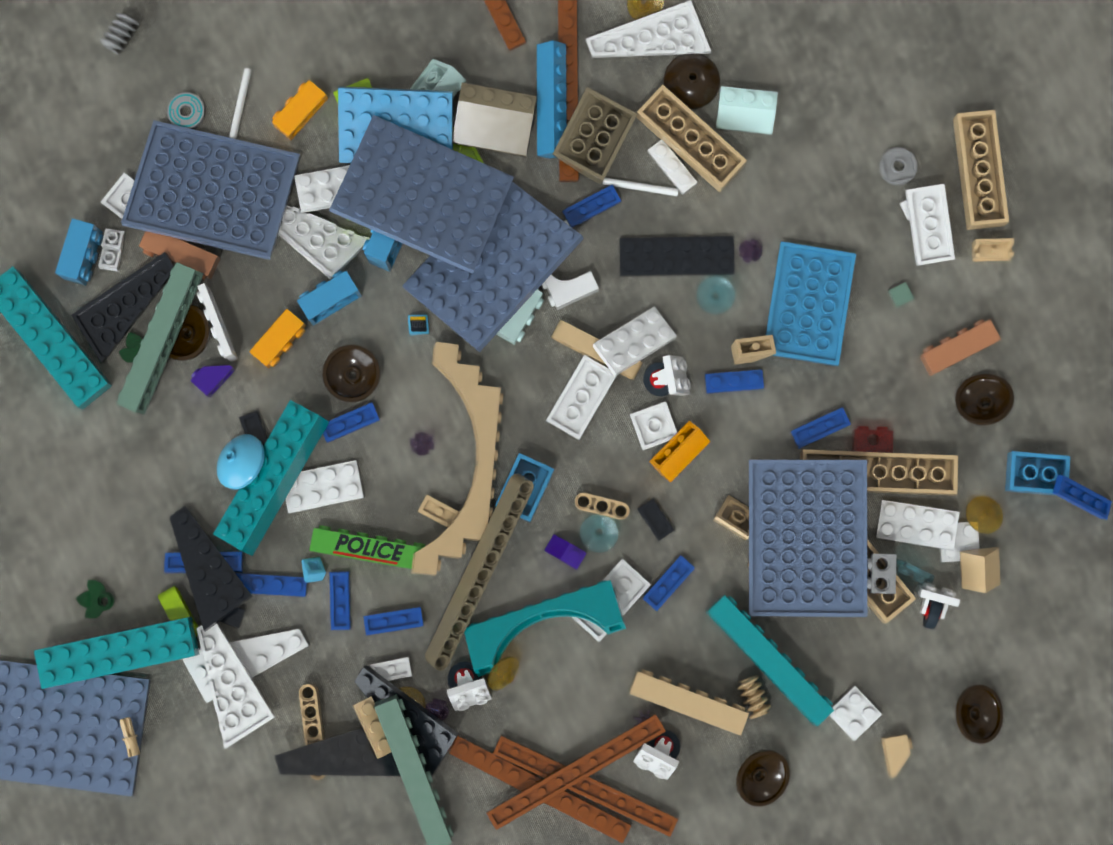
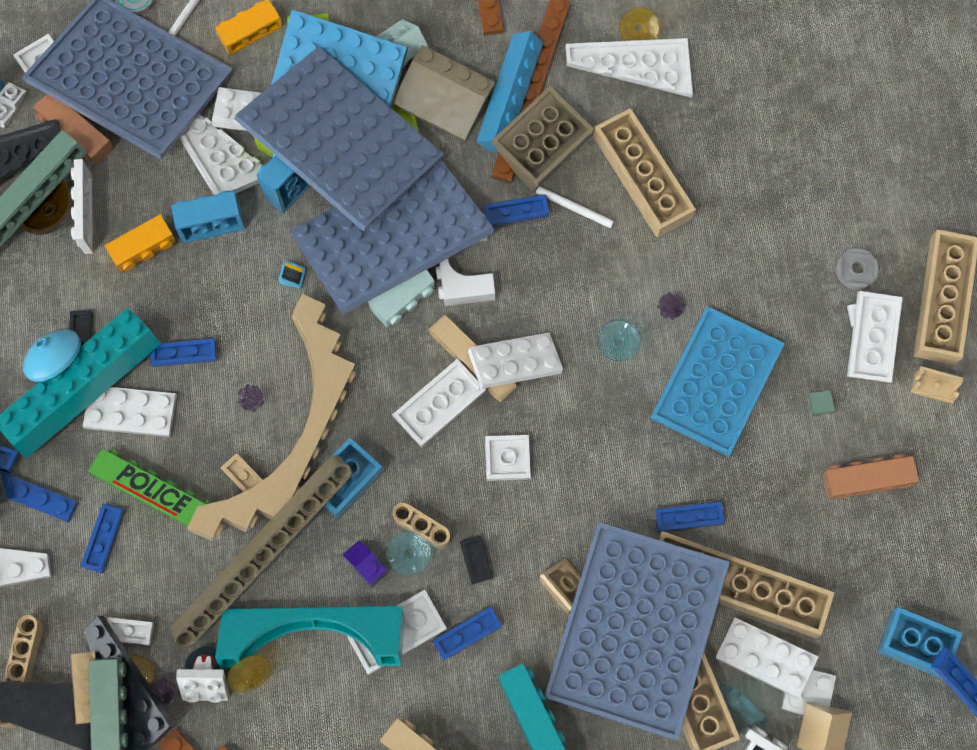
camera: 15 degrees right, 10 degrees down
(211, 378) = (57, 262): dark purple slope -> none
(313, 569) = (86, 495): medium azure slope -> none
(340, 365) = (202, 288): dark brown dish -> none
(393, 621) = (151, 578): blue plate -> none
(667, 377) = (539, 409): white plate -> none
(672, 167) = (615, 197): white plate -> none
(676, 256) = (590, 289): black plate -> none
(679, 451) = (526, 492): light orange brick -> none
(695, 92) = (669, 129): dark brown dish -> none
(734, 381) = (610, 438): blue plate -> none
(746, 110) = (711, 162): light aqua slope -> none
(752, 349) = (640, 408): tan slope -> none
(882, 434) = (756, 544): clear red brick -> none
(888, 574) = (713, 698): light grey brick -> none
(979, 519) = (838, 674): clear yellow dish -> none
(981, 391) = (882, 533): dark brown dish -> none

